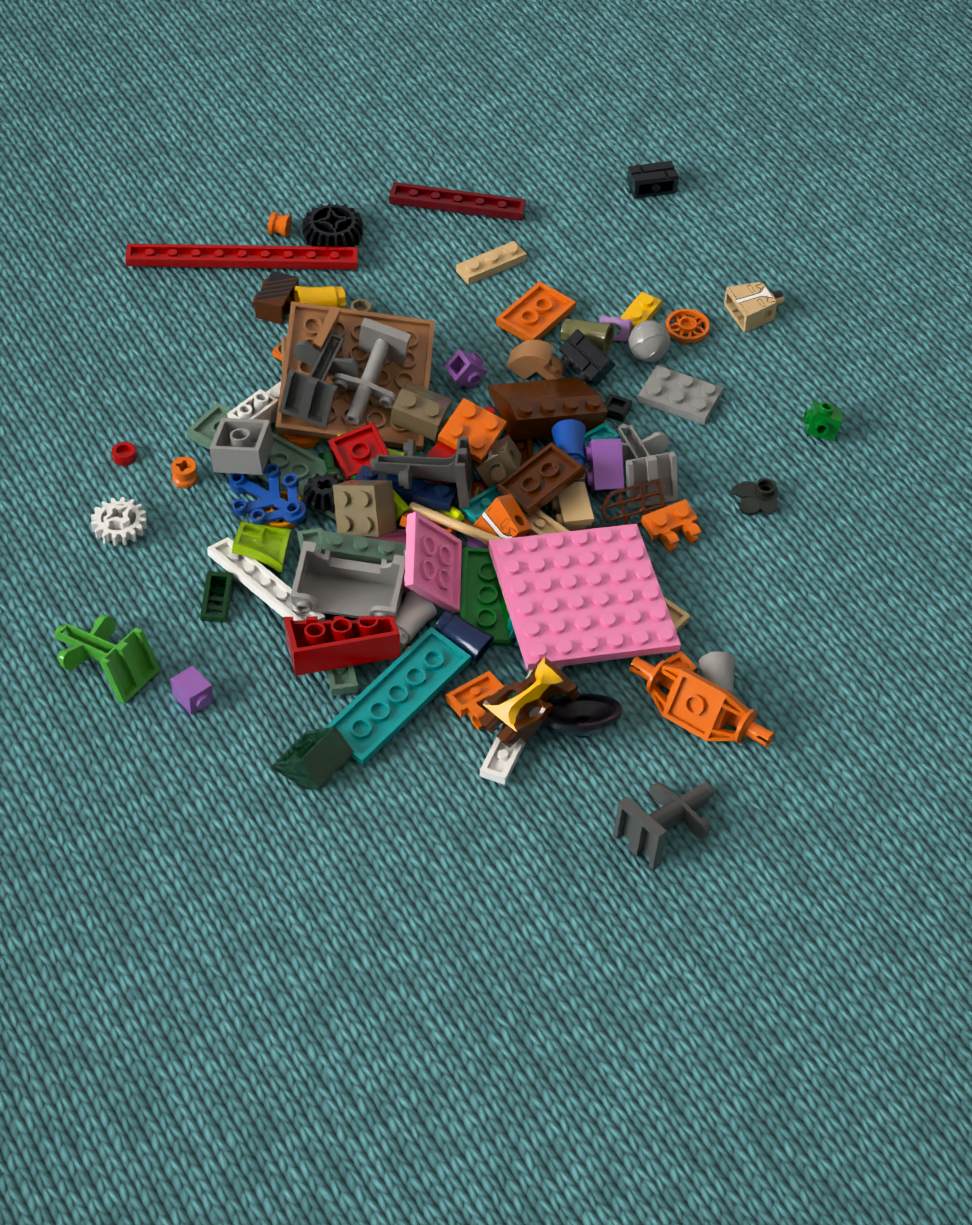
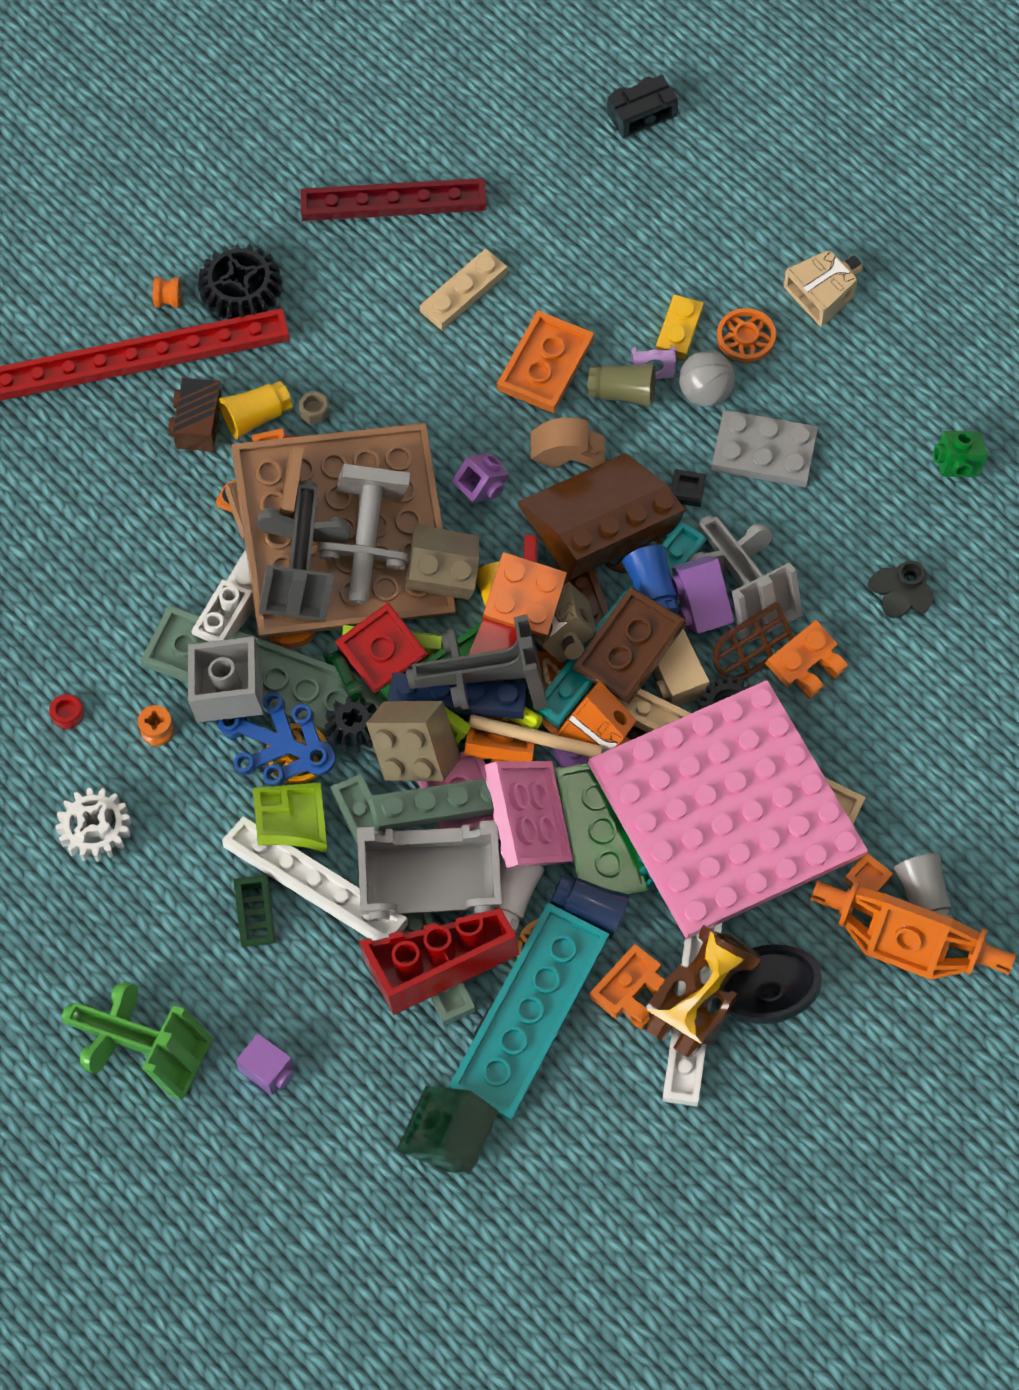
camera: 10 degrees left, 15 degrees up
(586, 357) = (632, 424): black brick -> none
(649, 832) = (893, 1141): dark grey piece -> none

